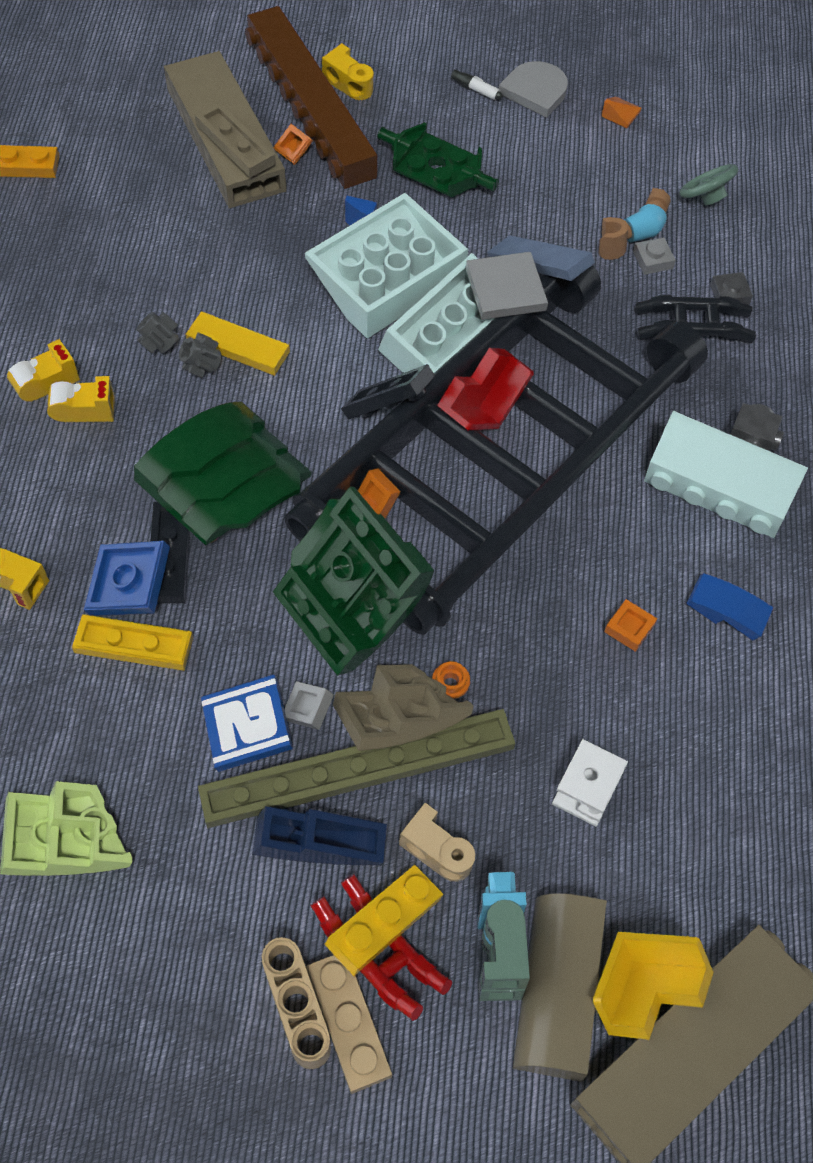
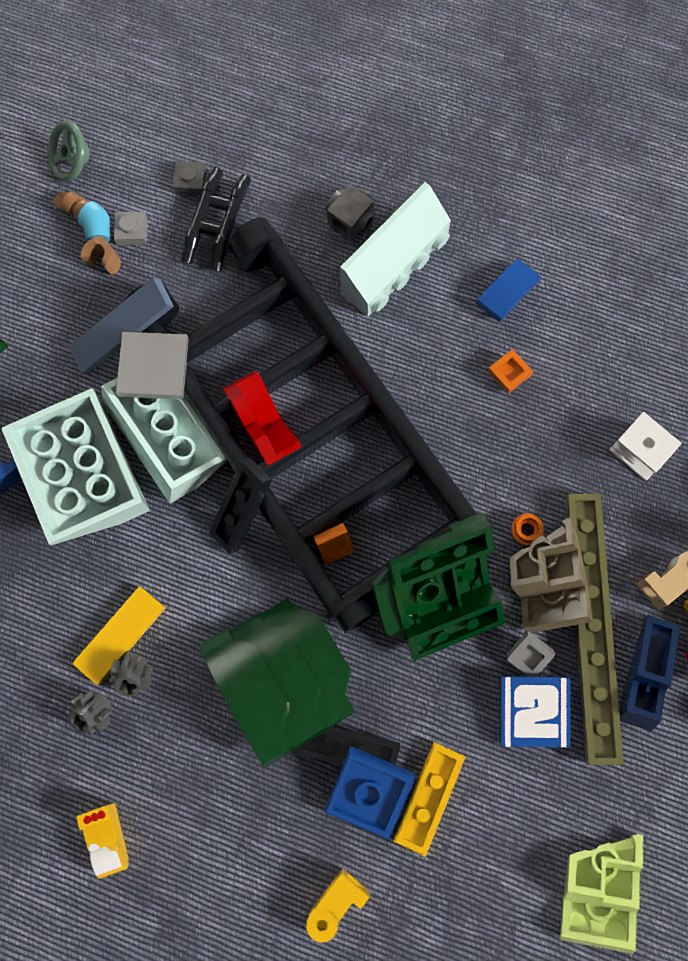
camera: 70 degrees left, 15 degrees up
(82, 401) = (150, 805): yellow leg -> none

